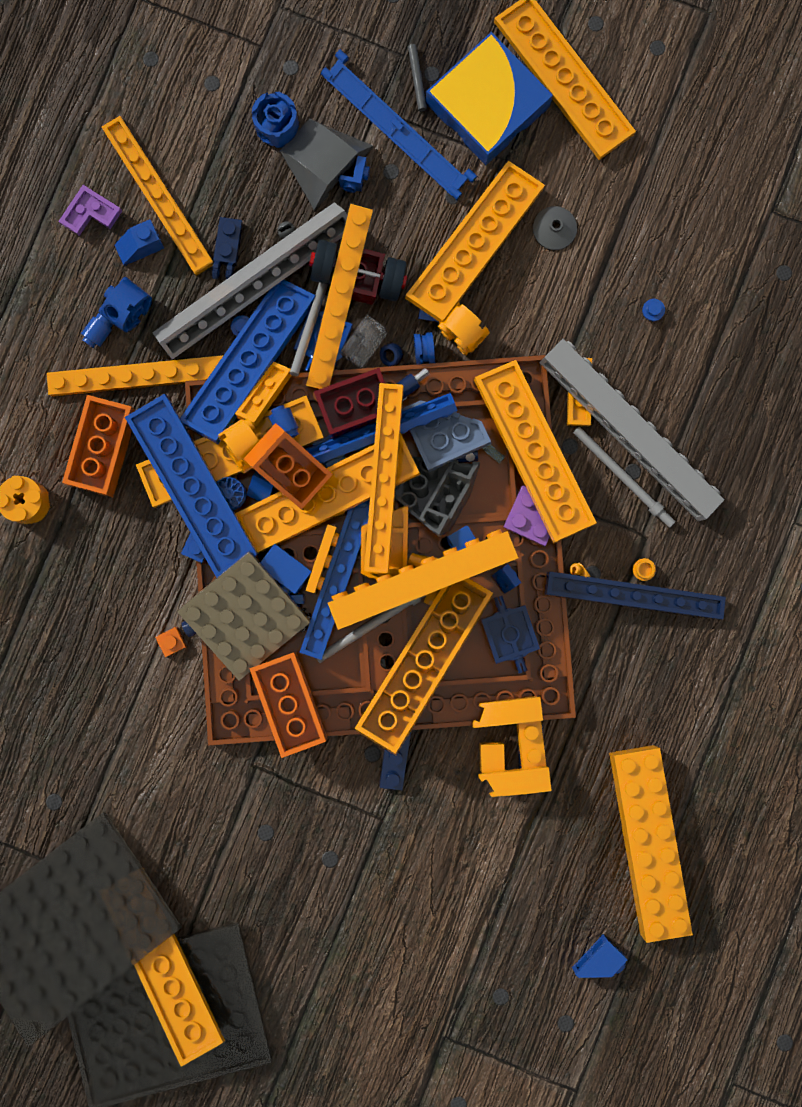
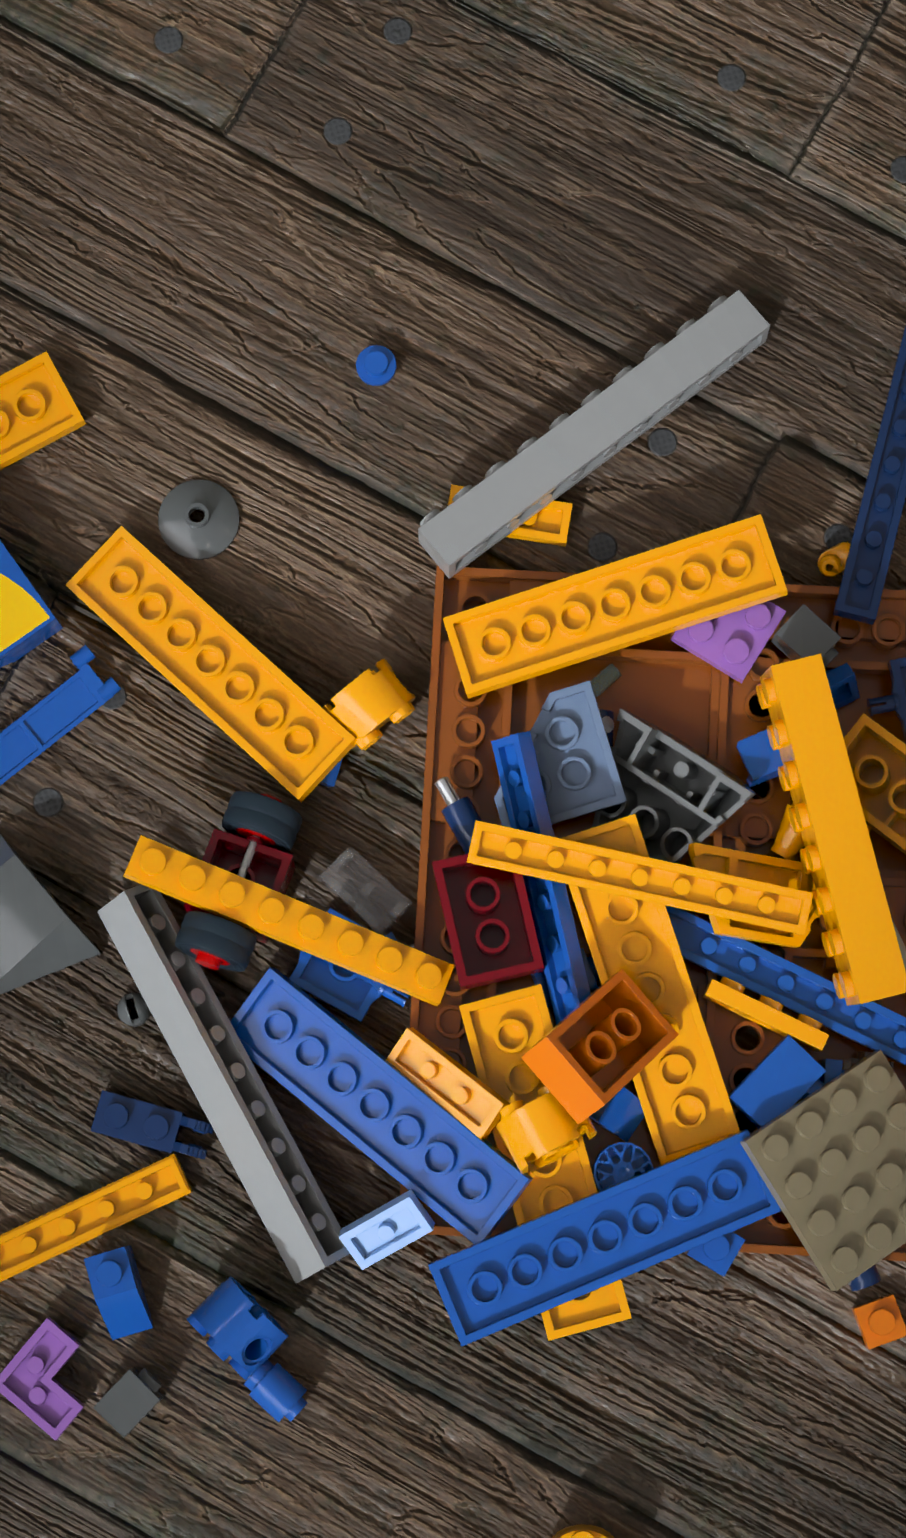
camera: 75 degrees left, 5 degrees down
(83, 256) = (130, 1400): none -> dark grey brick
(99, 446) = (501, 1409): orange brick -> none
(130, 376) = (368, 1349): light orange plate -> none
(184, 373) = (386, 1229): none -> light blue plate
(238, 323) = (301, 1118): blue plate -> none
(285, 419) = (504, 1049): blue brick -> none
(309, 326) = (336, 988): light grey bar -> none
(361, 173) = (48, 856): blue bracket -> none
(397, 352) = (388, 833): dark blue piece -> none
(424, 348) = (394, 781): blue wheel -> none
(530, 558) = (806, 636): none -> dark grey brick
(644, 569) = (843, 446): light orange plate -> none
(655, 508) = (733, 412): light grey bar -> none

